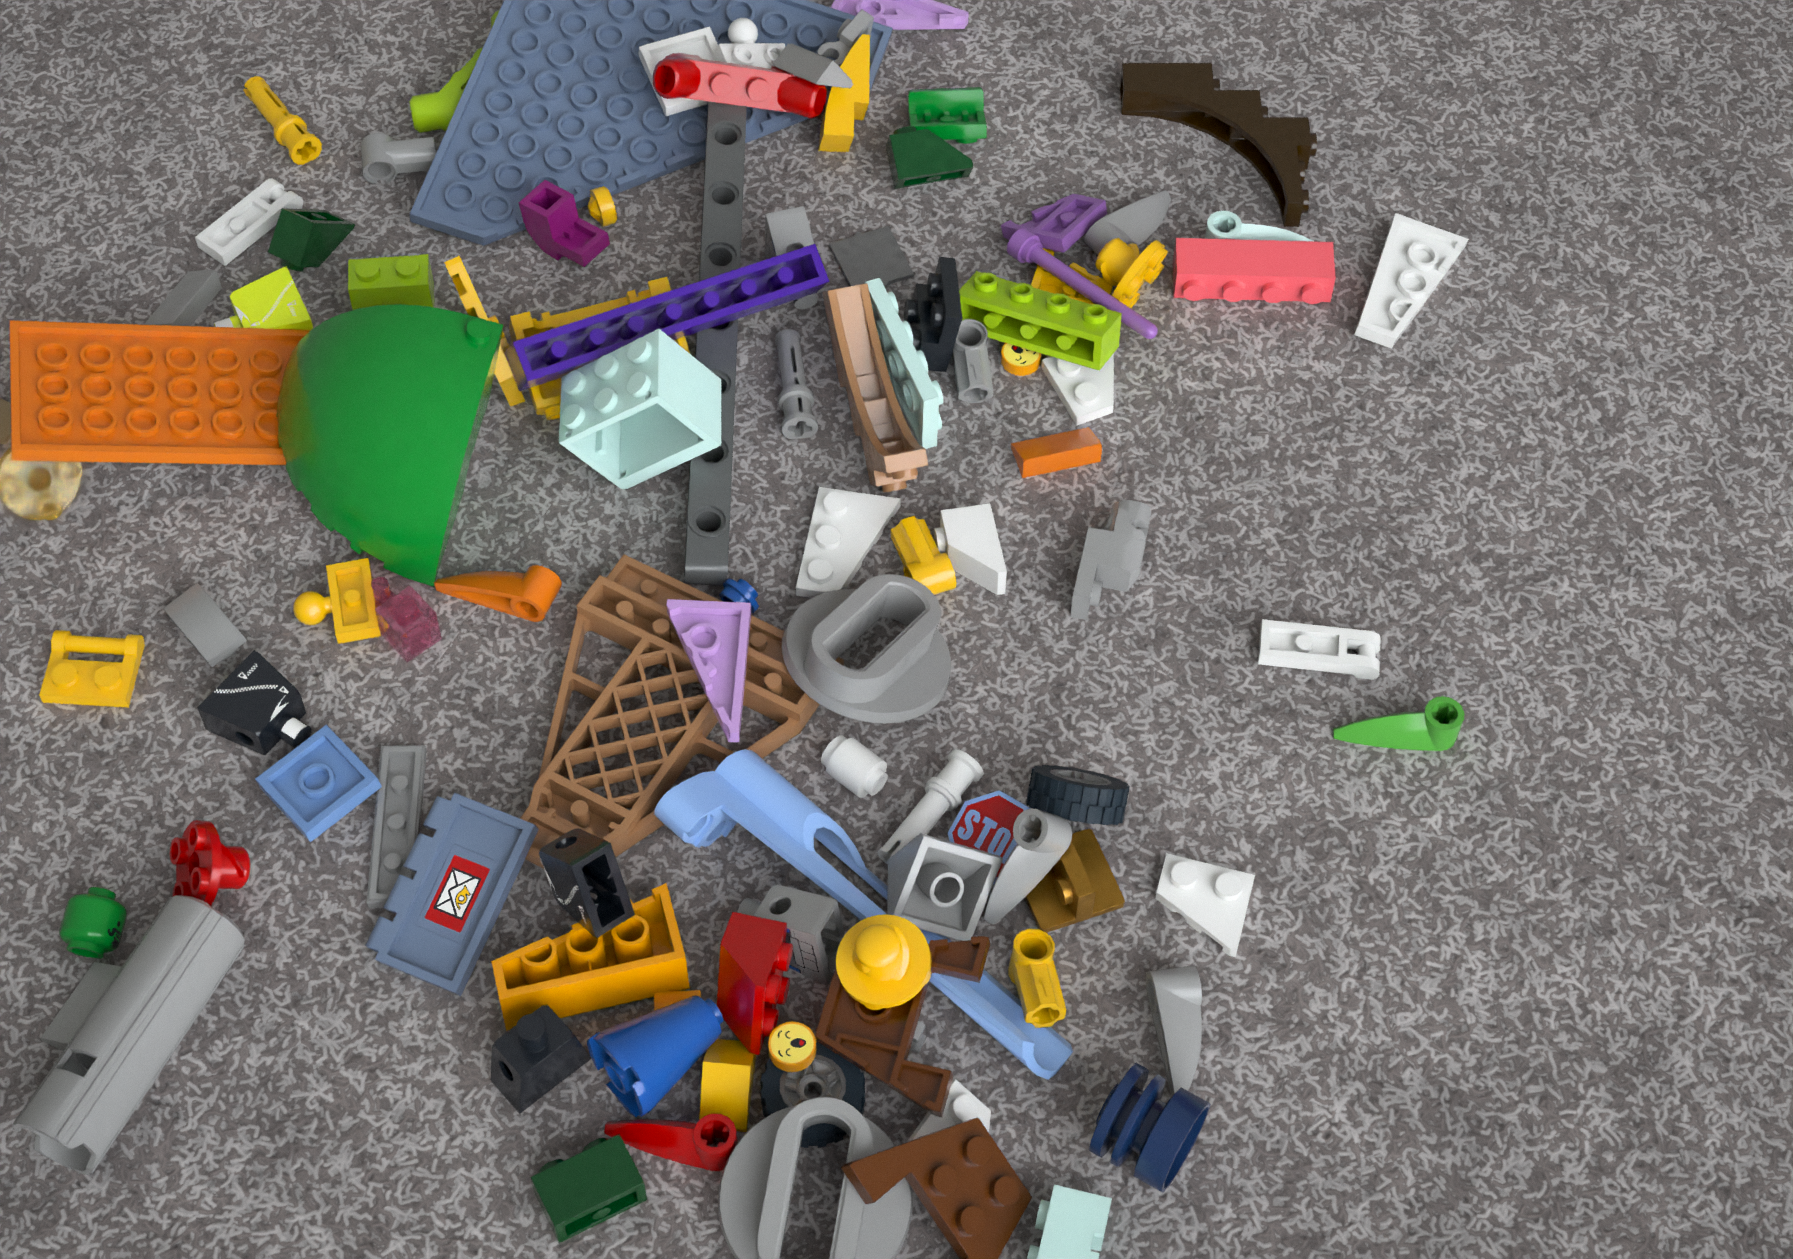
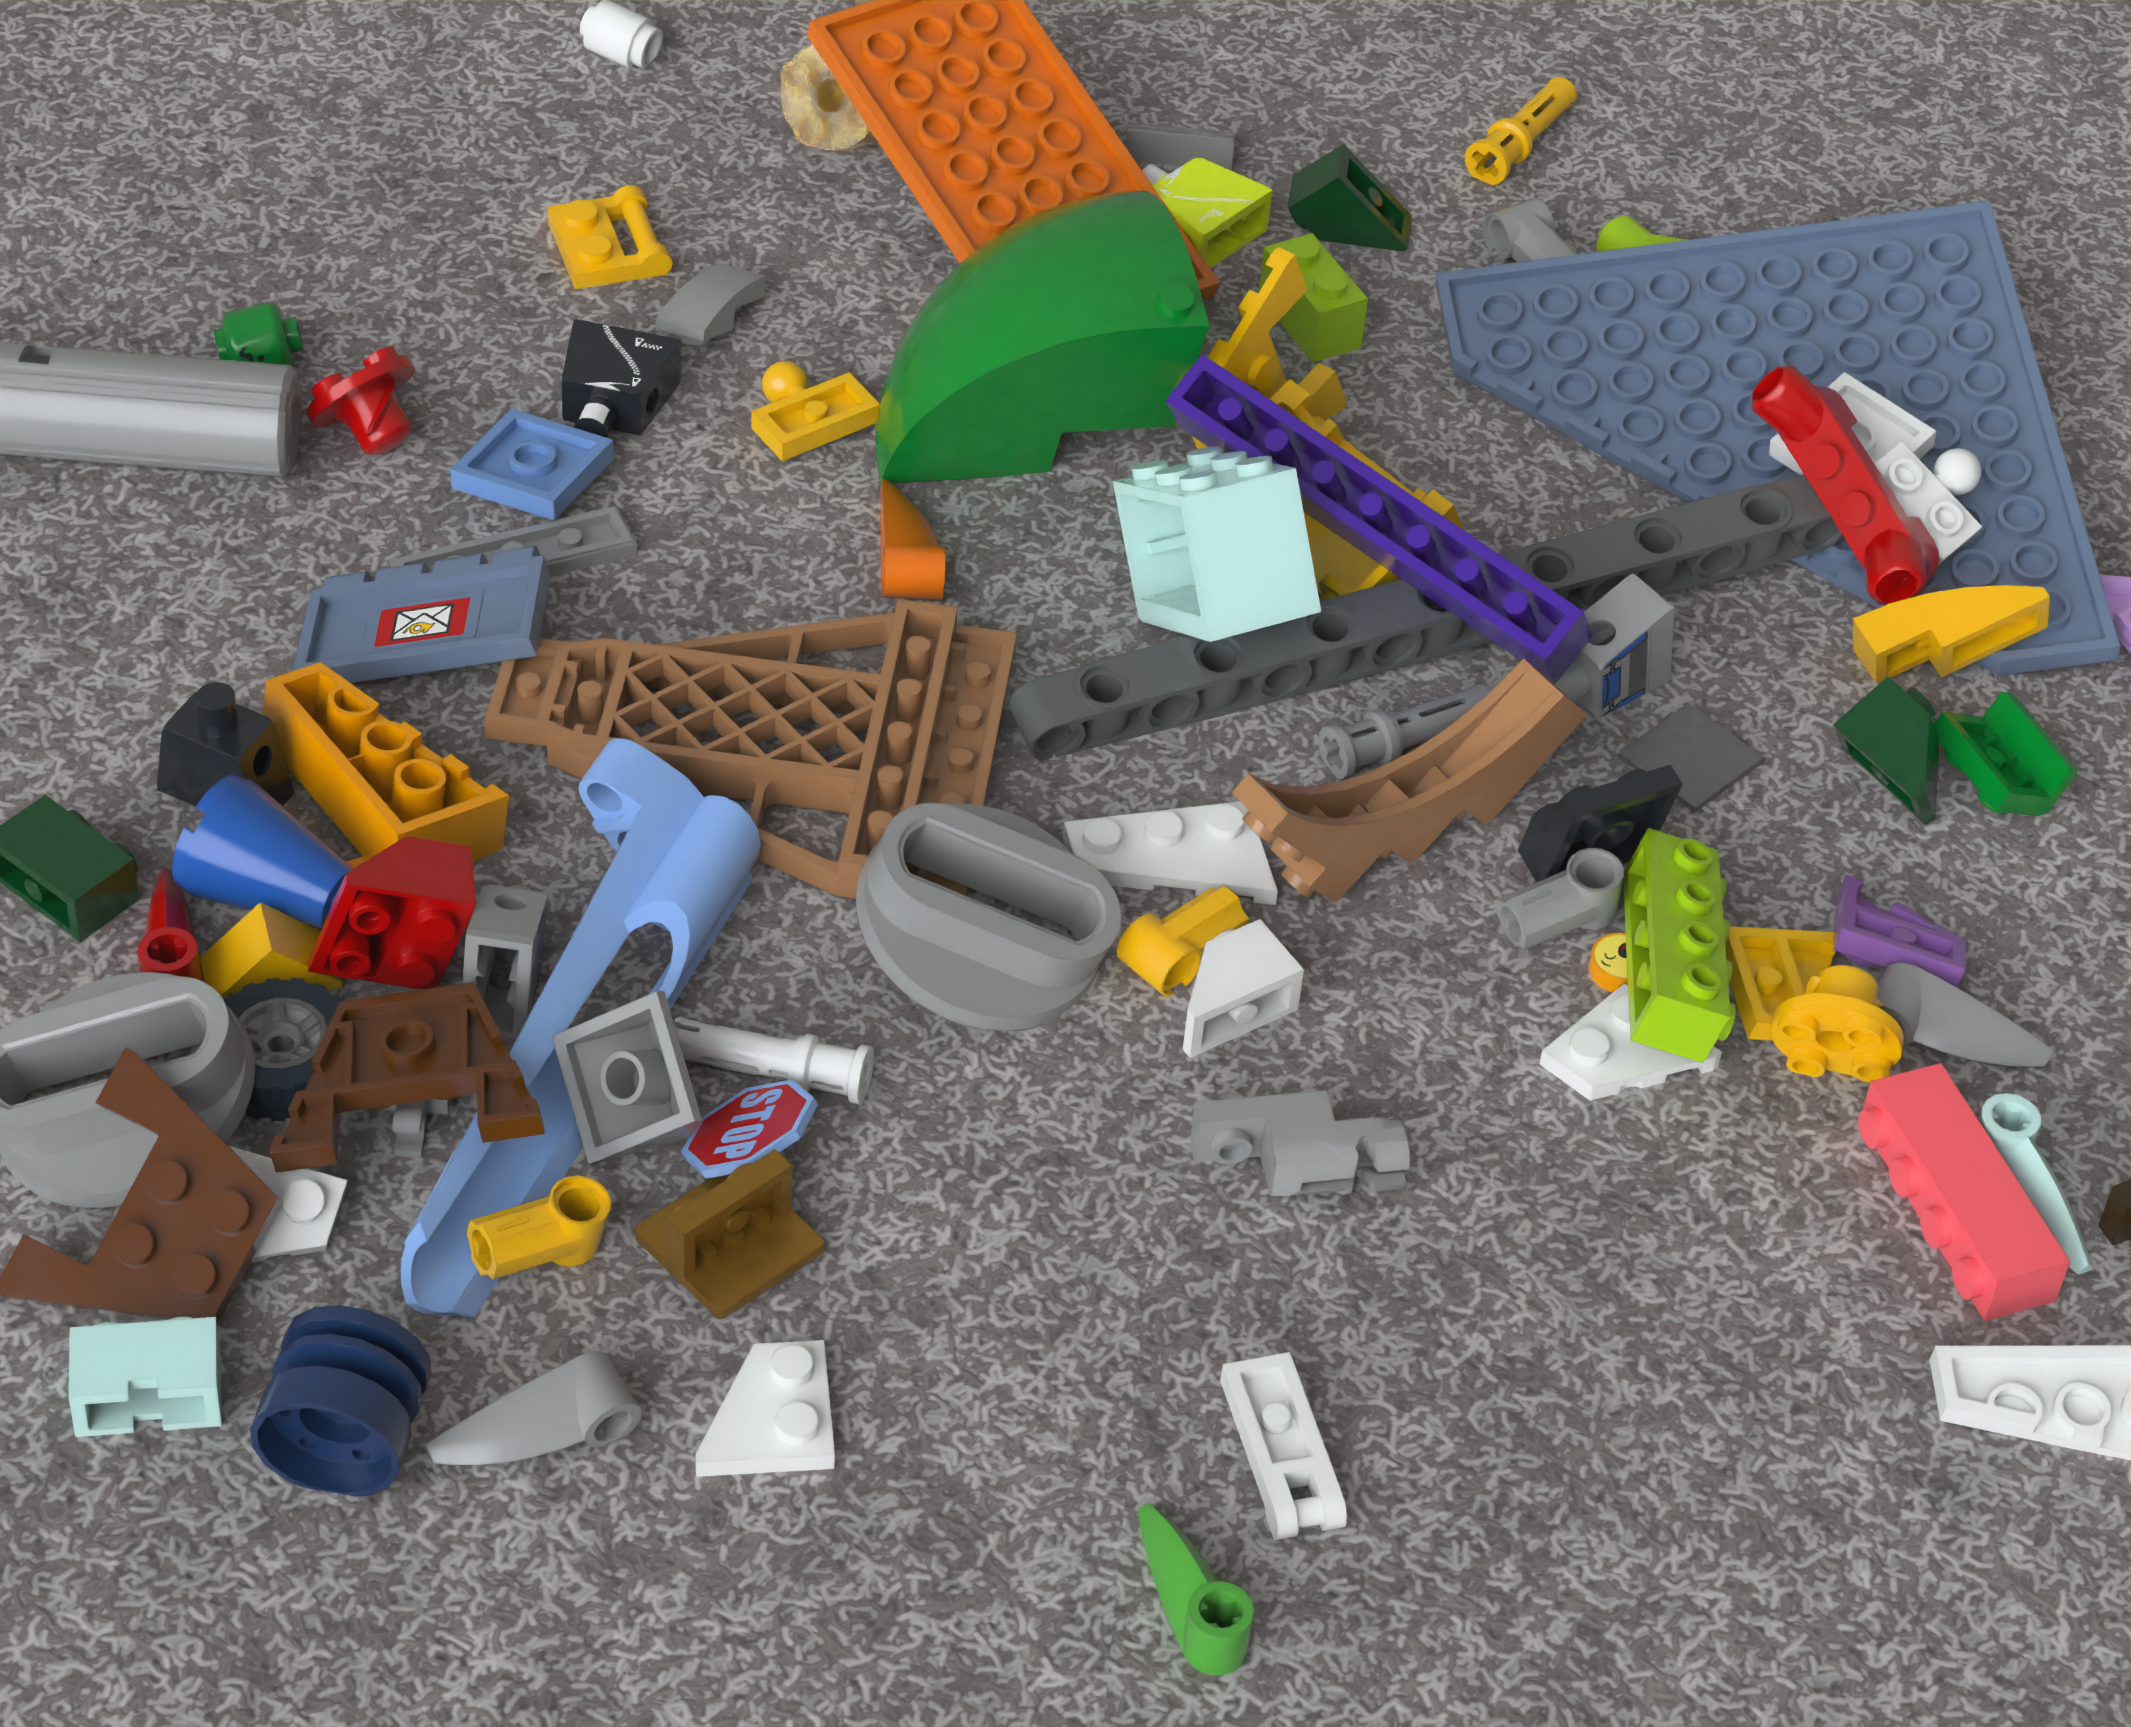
camera: 65 degrees right, 10 degrees down
(246, 221) = (1302, 141): white plate -> none
(405, 619) = (802, 462): clear pink brick -> none
(556, 227) = (1512, 412): magenta brick -> none
(585, 865) = (457, 684): black torso -> none
(602, 206) = (1584, 452): yellow tile -> none
(717, 647) = (883, 741): lavender wing -> none
(739, 592) = (1014, 767): blue plate -> none
(792, 1046) = (318, 987): tile -> none
(812, 67) = (1935, 553): light grey slope -> none
(848, 35) = (2064, 586): light grey plate -> none
(854, 766) = (801, 956): white brick -> none
(883, 961) = (457, 1013): yellow plate -> none
(906, 367) = (1487, 810): light aqua plate -> none
(1026, 247) = (1812, 906): medium lavender piece -> none
(1039, 846) = (707, 1145): light grey piece -> none
(1057, 452) = (1469, 1047): orange slope -> none
(1077, 794) = (848, 1188): black wheel -> none

